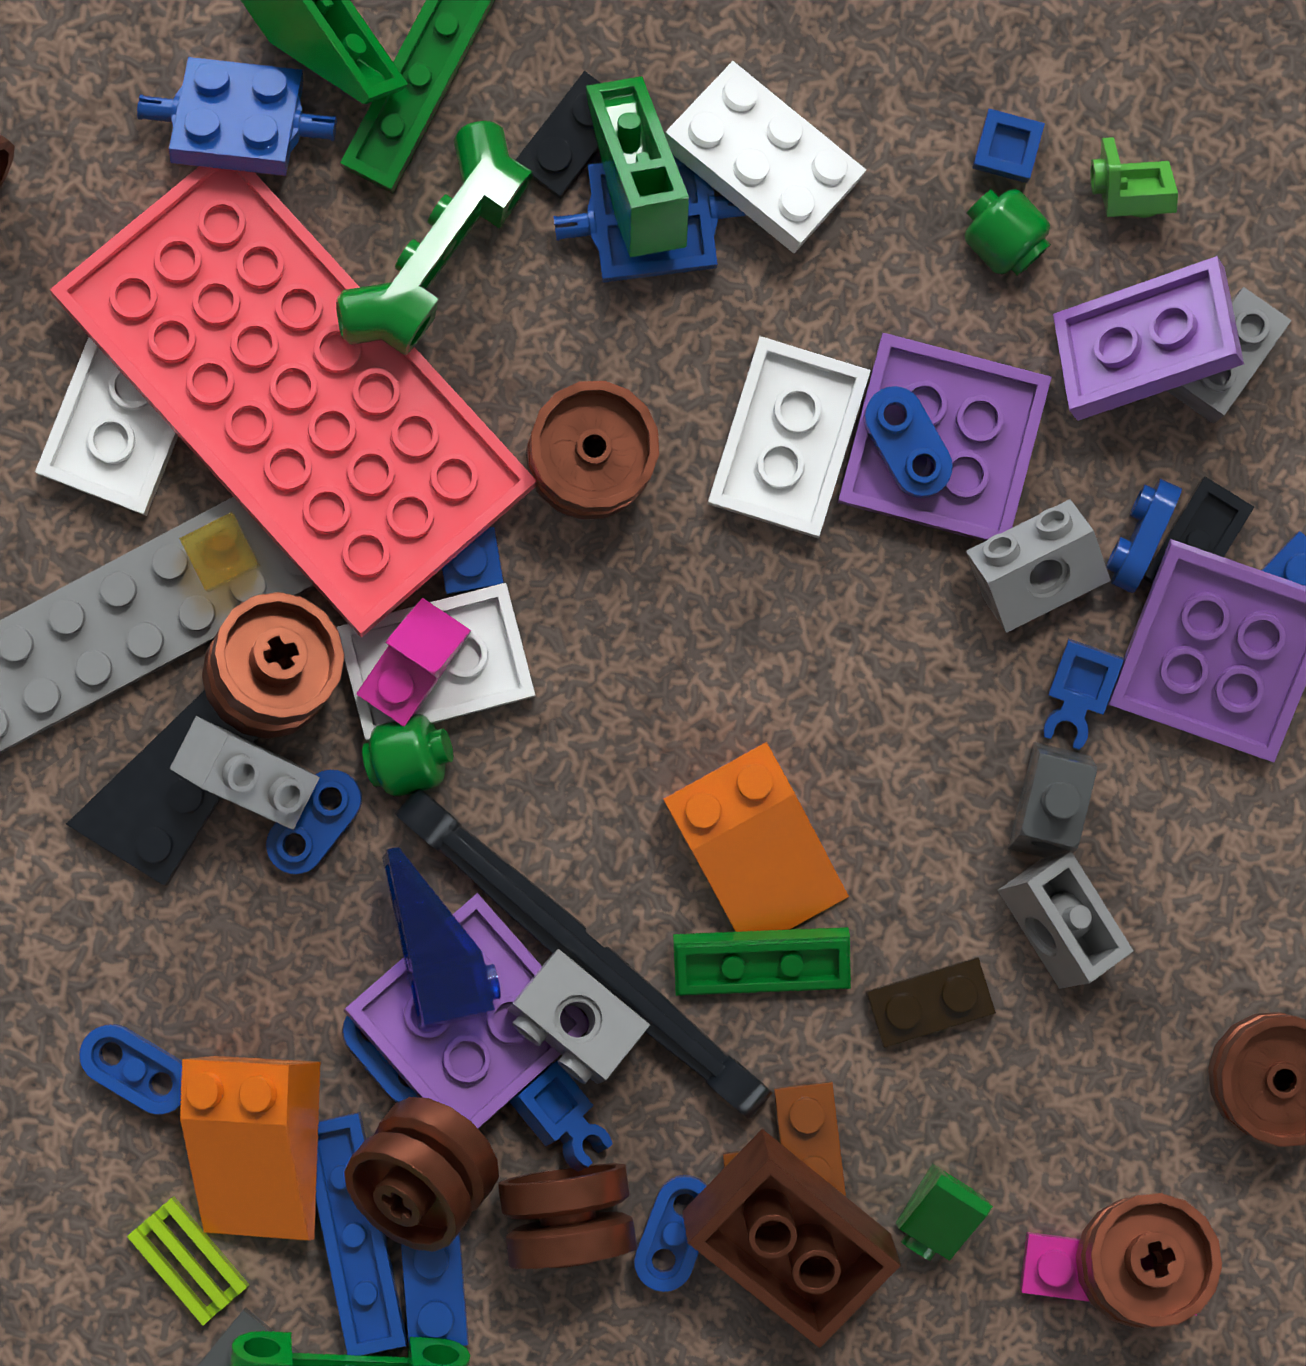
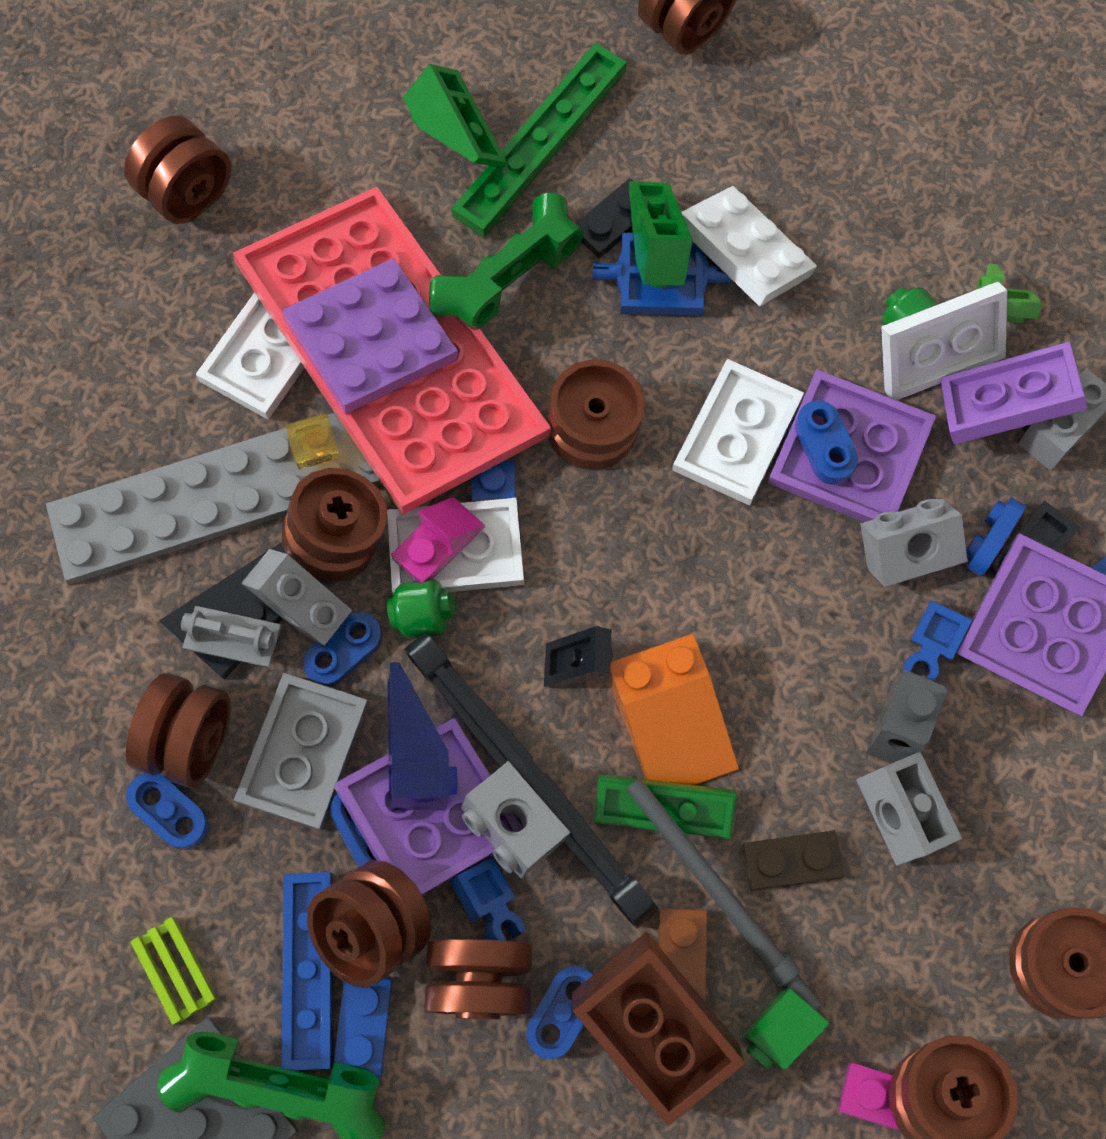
camera: 10 degrees right, 15 degrees down
(131, 972) = (178, 730): none -> copper wheel
(169, 836) = (230, 636): none -> light grey hinge
(236, 116) = (387, 170): plate -> none
(252, 1143) = (242, 881): orange slope -> none
(267, 388) = (369, 335): none -> medium lavender plate
(290, 966) = (302, 751): none -> light grey plate
(623, 794) = (578, 657): none -> black plate
(931, 1136) = (780, 968): none -> dark grey bar
(1008, 145) = (919, 263): blue plate -> none
(1051, 271) = (944, 341): none -> white plate

